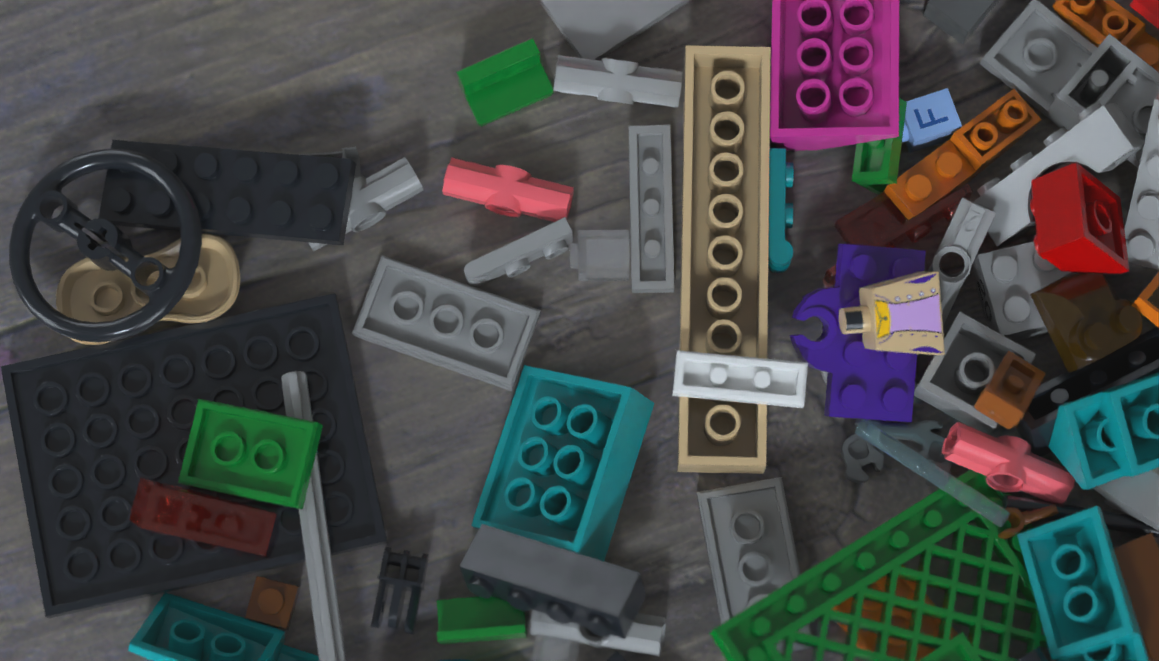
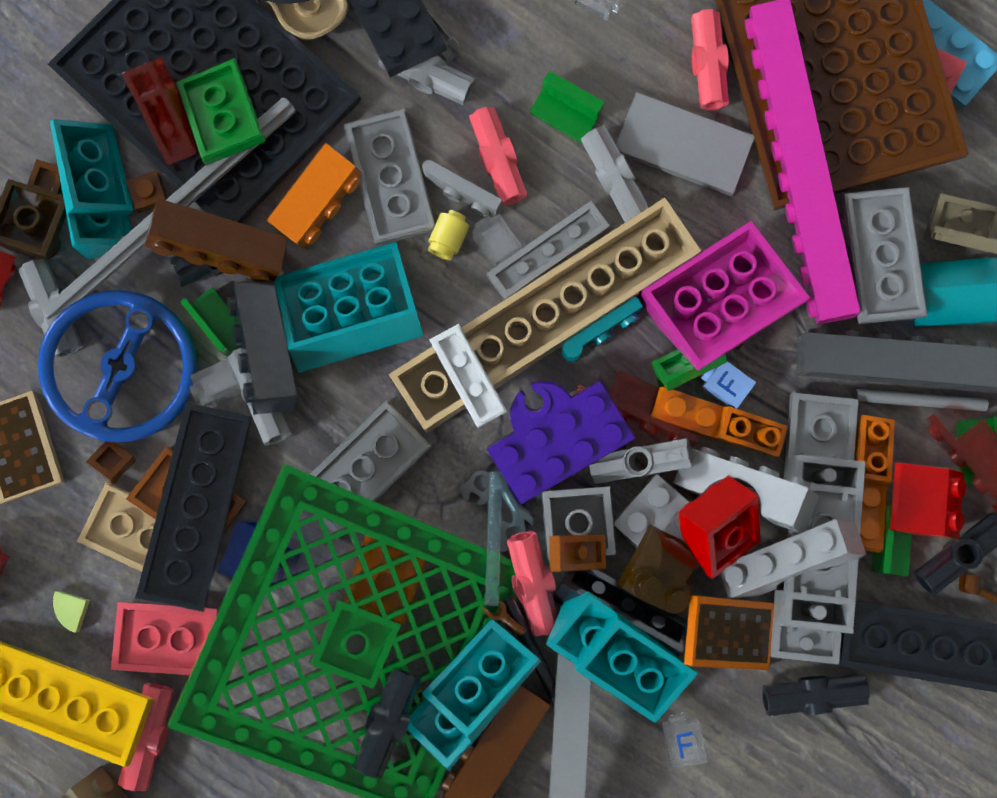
camera: 55 degrees right, 5 degrees up
(398, 555) = (215, 241): none -> reddish brown brick
(418, 415) = (315, 196): none -> orange brick
(559, 302) = (448, 235): none -> light yellow brick
(899, 315) = (576, 448): torso -> none

